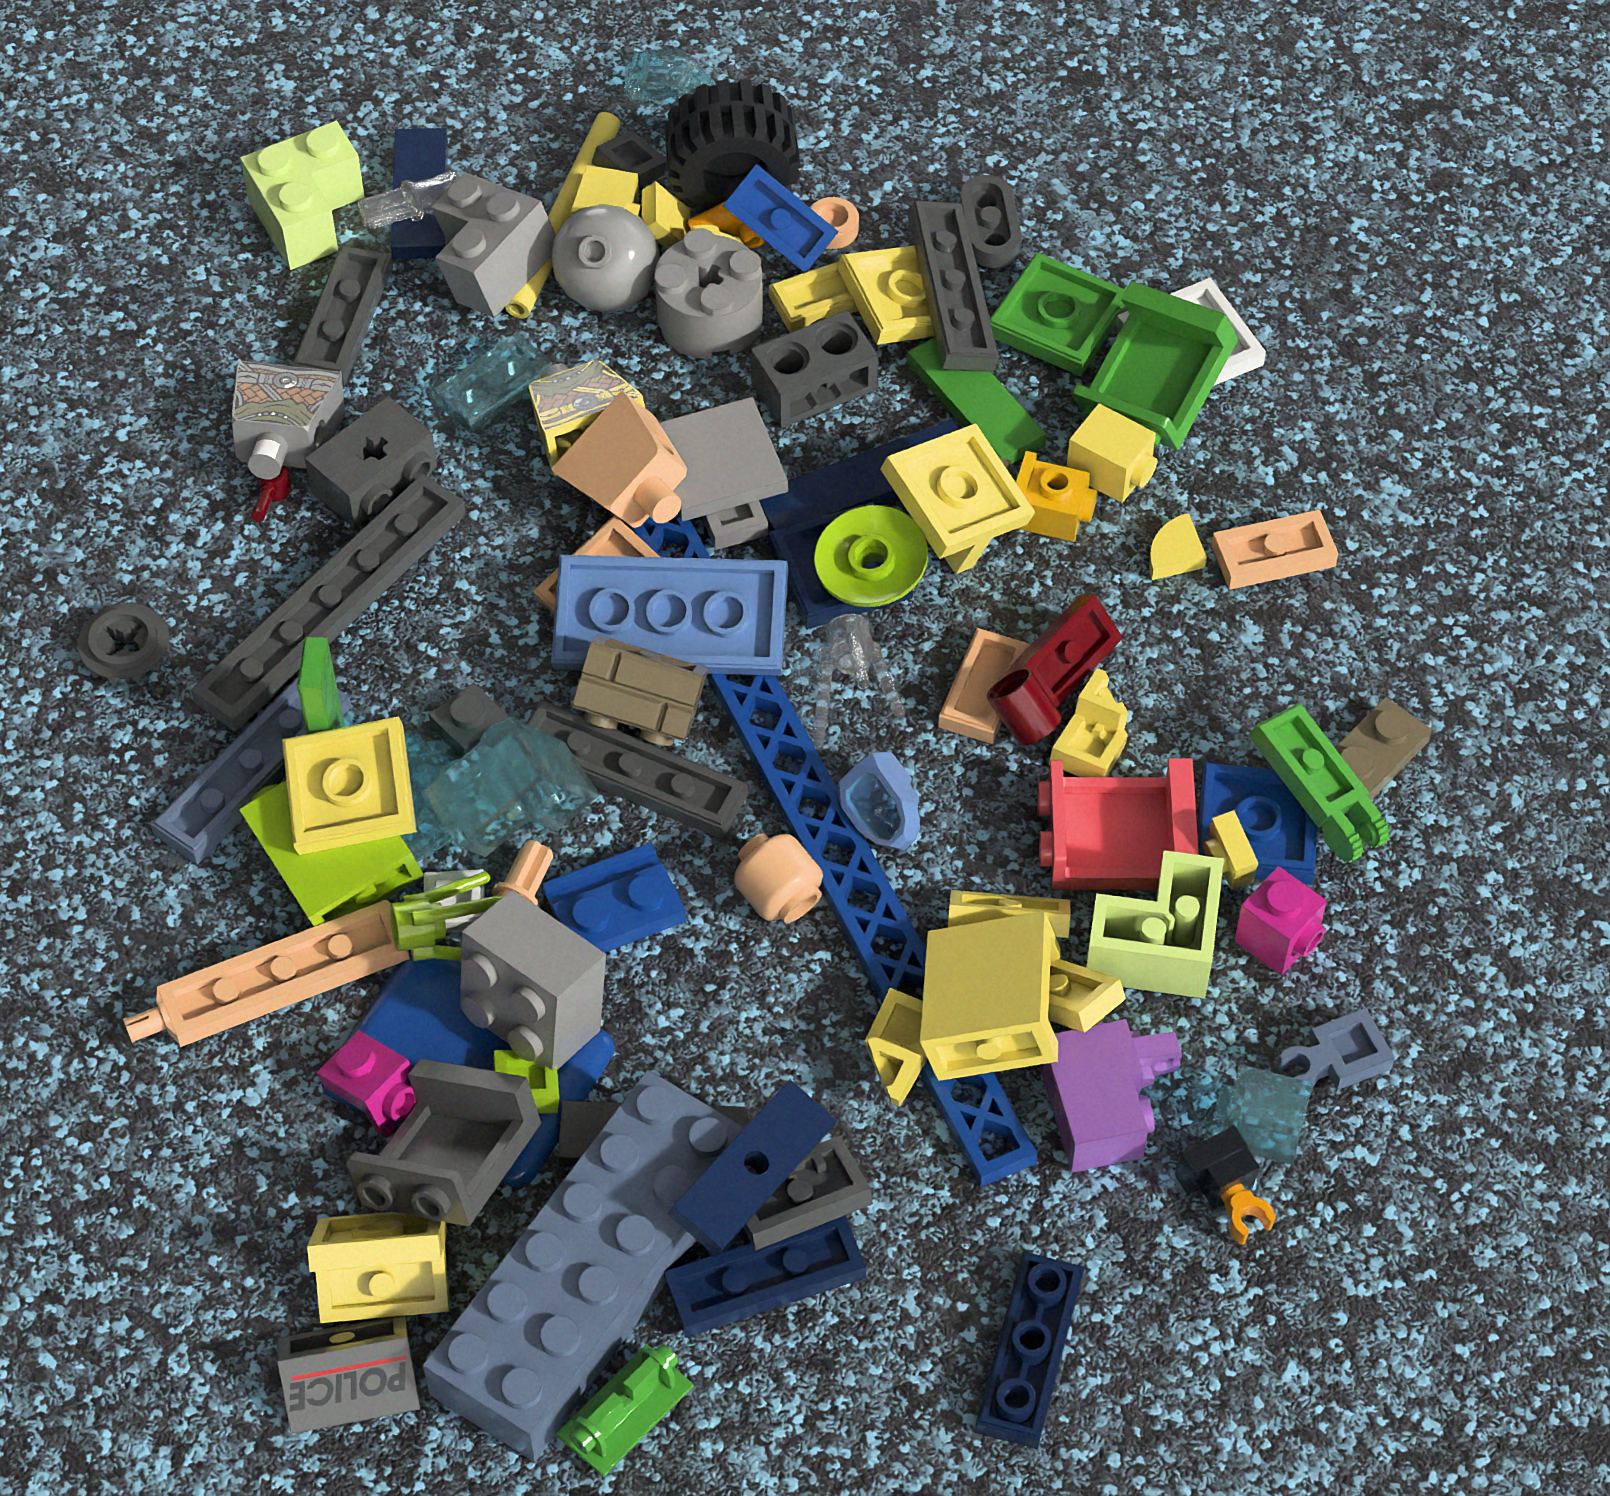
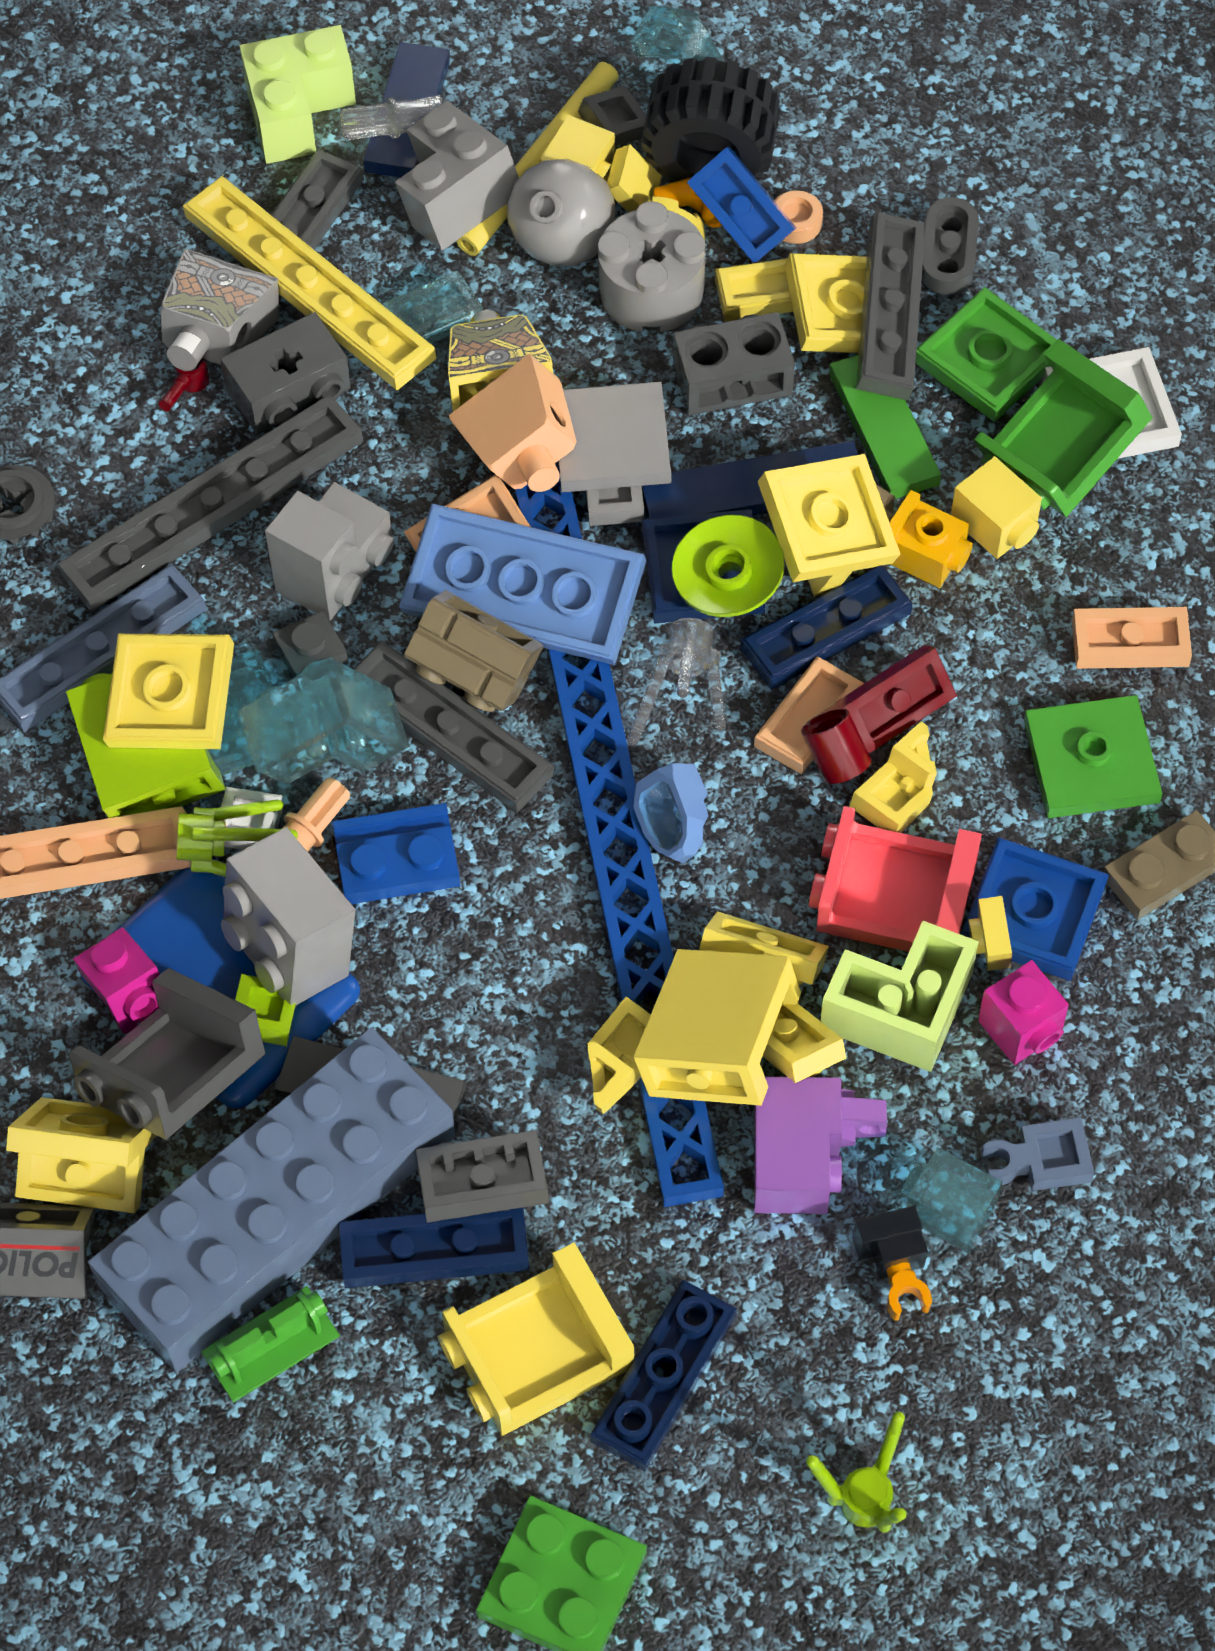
camera: 15 degrees right, 5 degrees up
(318, 687) = (162, 593): bright green tile -> none
(372, 370) = (310, 282): none -> light yellow tile
(463, 620) = (327, 547): none -> light grey brick
(771, 1144) = (468, 1127): dark blue tile -> none
(778, 877) = (553, 864): light nougat head -> none
(898, 1345) = (537, 1343): none -> light yellow panel
(975, 599) = (826, 626): none -> dark blue tile
(1176, 549) = (1035, 617): light yellow tile -> none
(1268, 1413) = (867, 1490): none -> lime plant
(1269, 666) = (1092, 756): none -> bright green plate
(1321, 782) = (1102, 882): bright green hinge -> none

